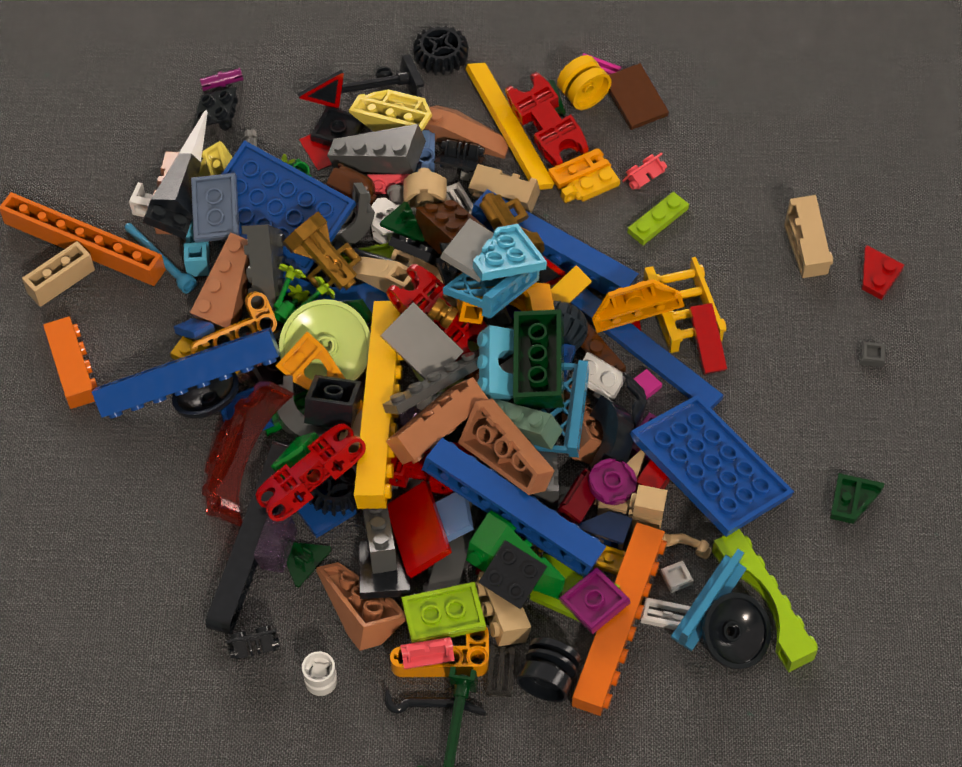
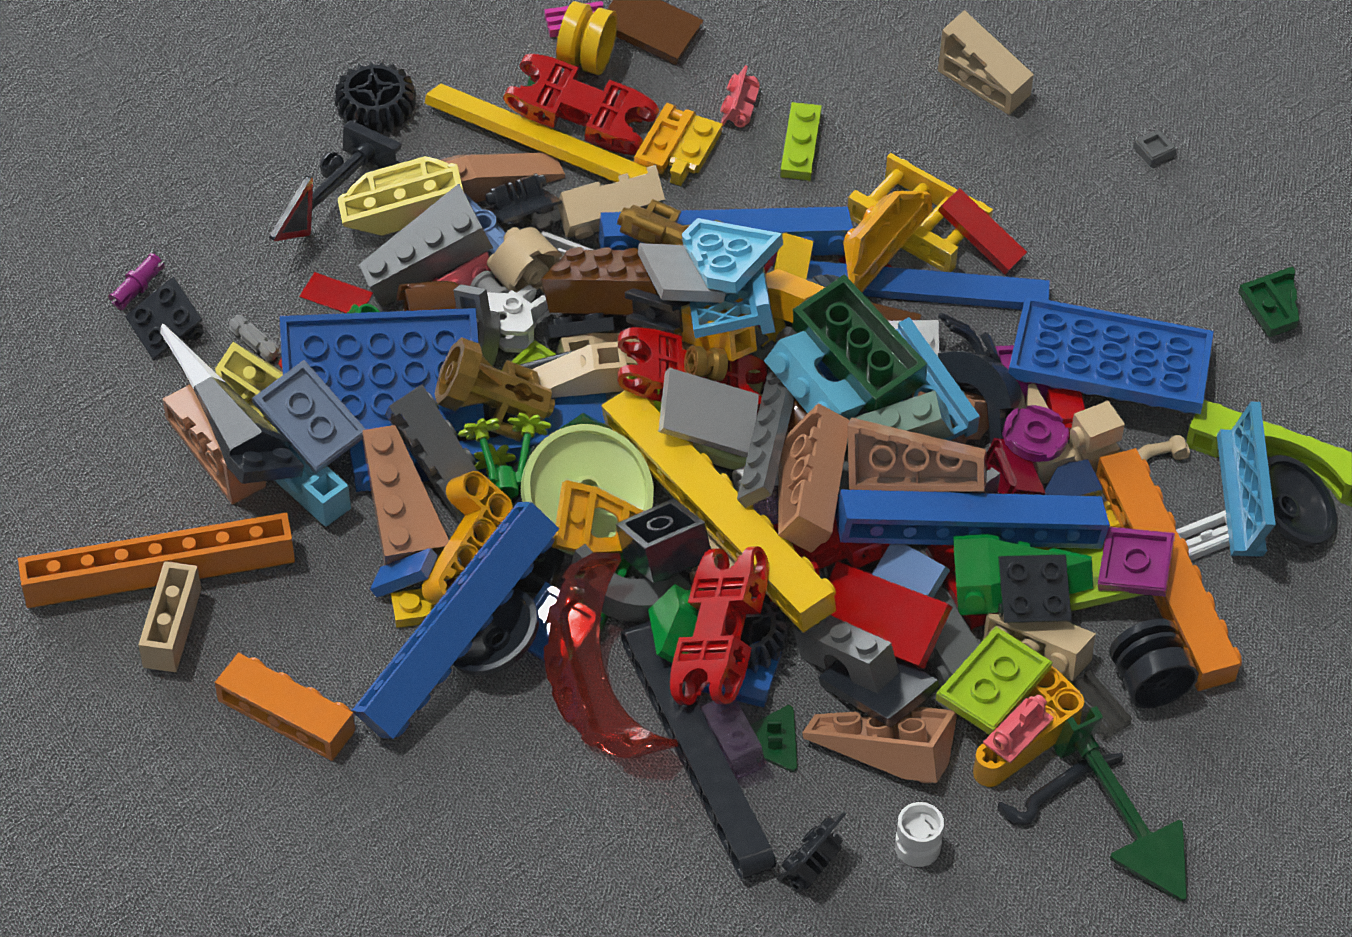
camera: 40 degrees left, 5 degrees down
(139, 200) = (188, 477): white panel -> none
(184, 281) = (329, 532): dark azure piece -> none
(335, 124) = (334, 255): black tile -> none
(403, 222) = (537, 306): dark green piece -> none
(648, 383) = (961, 313): dark pink tile -> none
(676, 576) = (1179, 492): white tile -> none
(879, 272) = (1082, 60): red wing -> none

